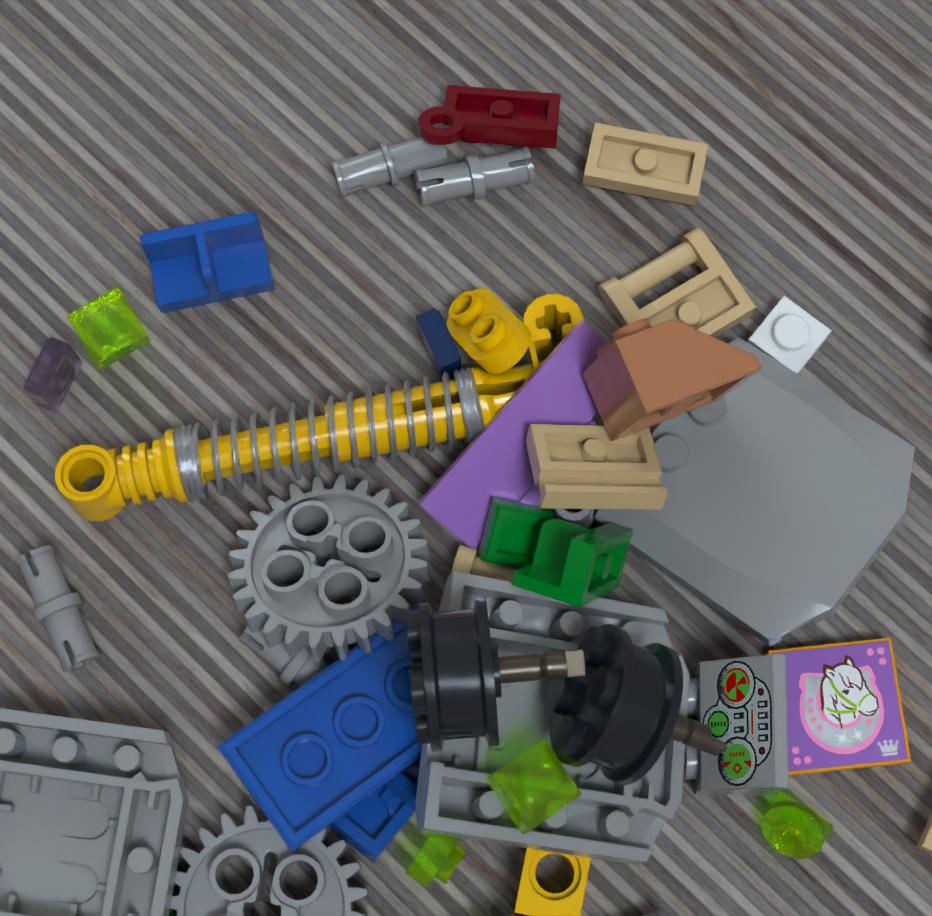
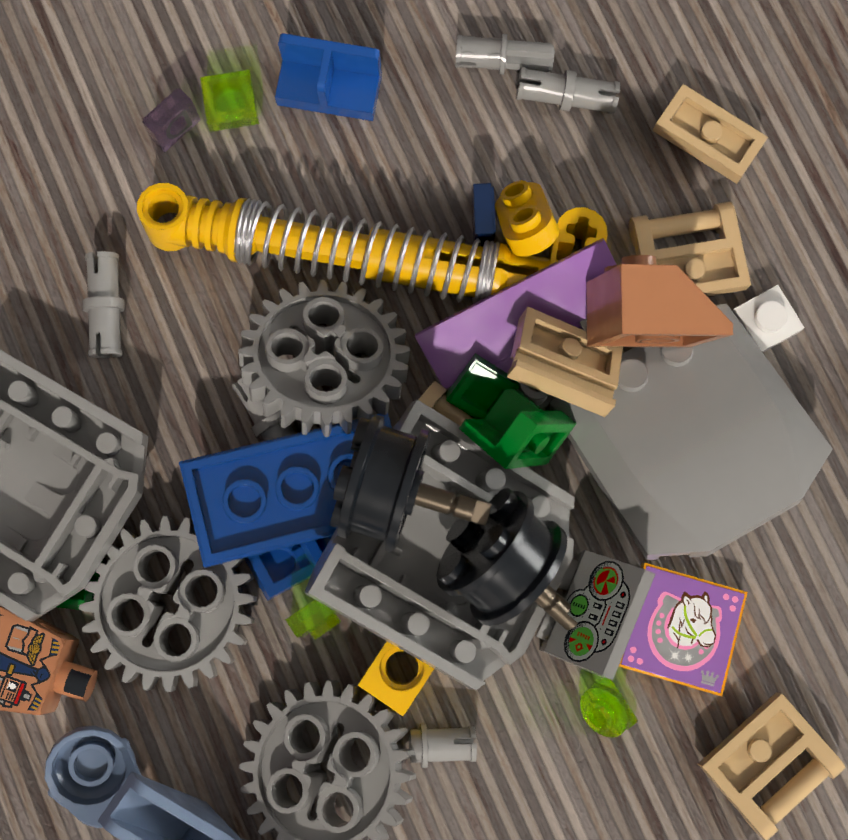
camera: 20 degrees right, 5 degrees up
(493, 117) = (602, 48): dark red hinge -> none
(533, 786) = (409, 595): clear neon green plate -> none

